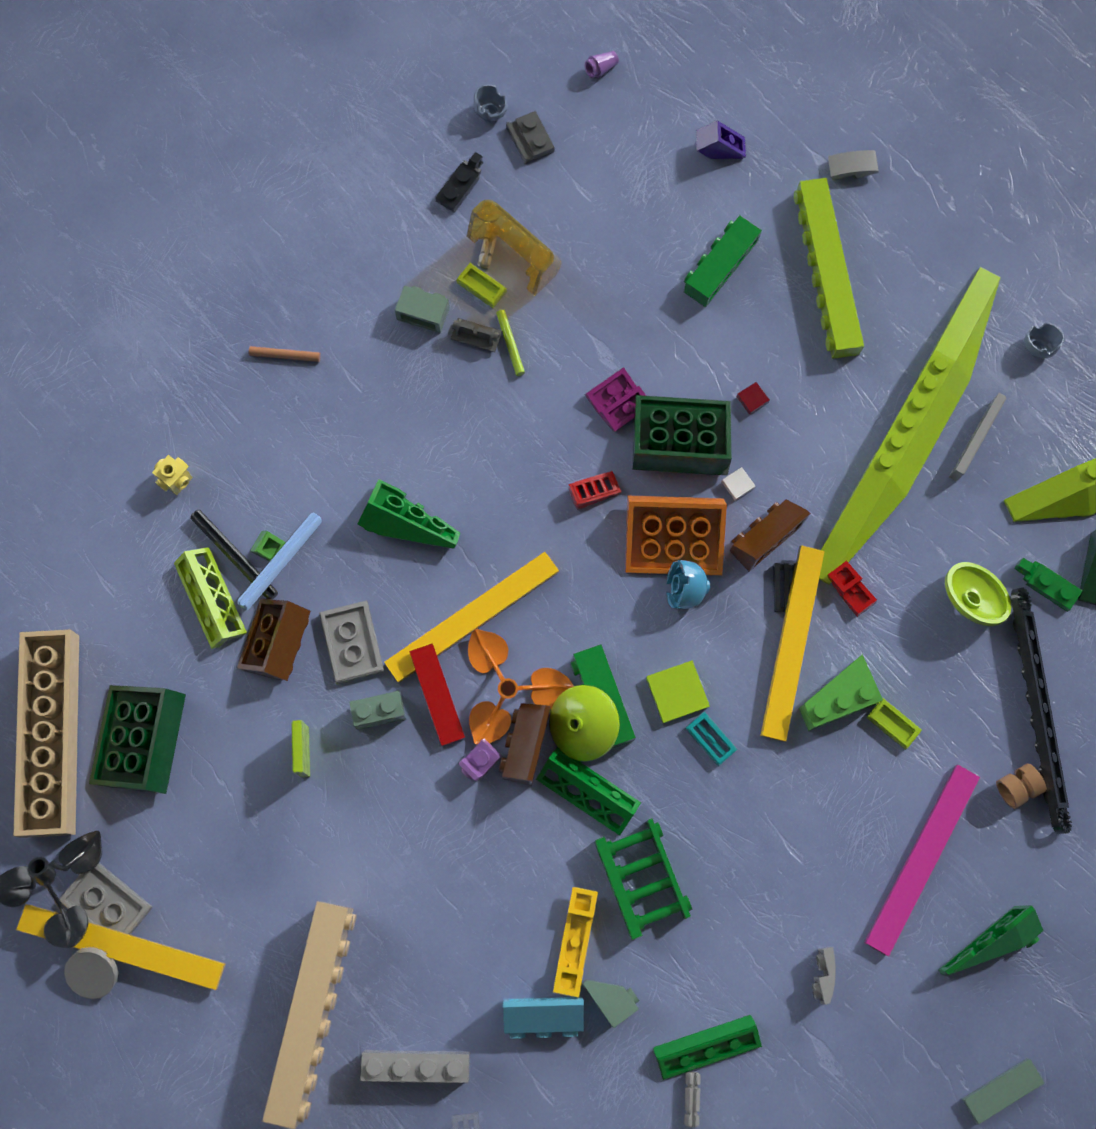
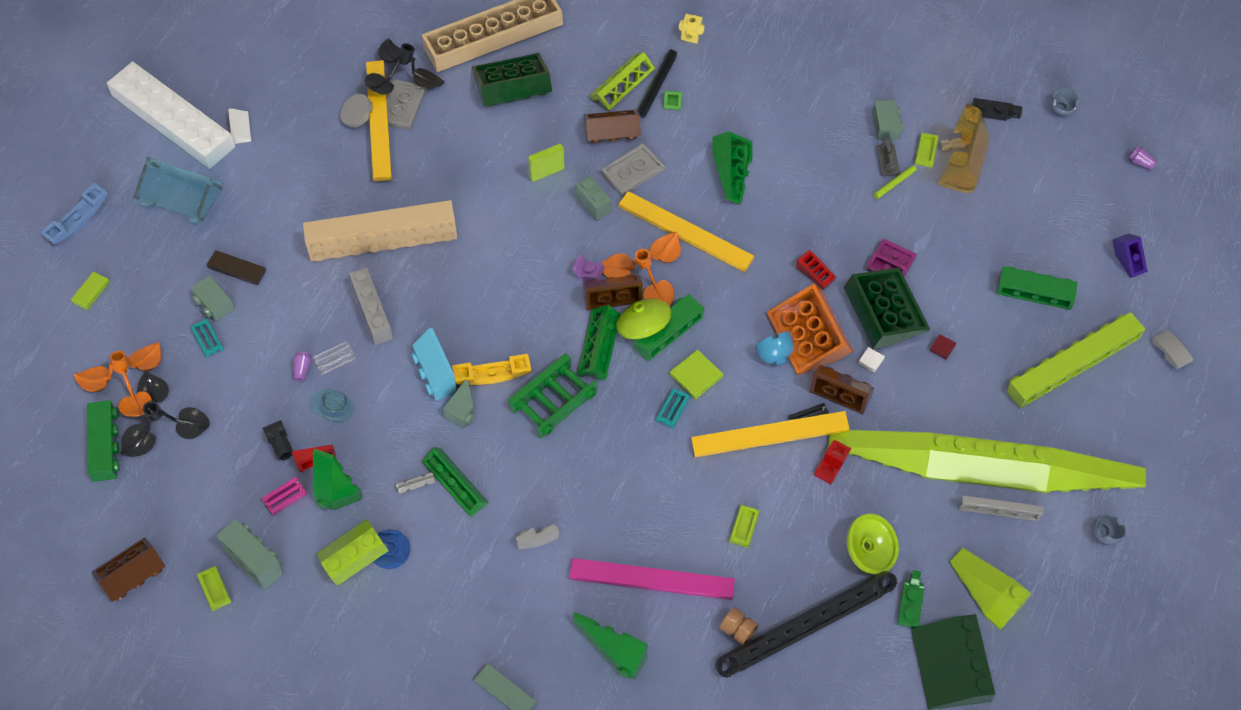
camera: 70 degrees right, 15 degrees down
(279, 561) = (665, 106): light blue axle -> none
(284, 354) = (809, 58): nougat bar -> none
(437, 694) = (621, 228): red tile -> none
(530, 137) = (1057, 137): dark grey plate -> none
(842, 696) = (746, 478): bright green wedge -> none

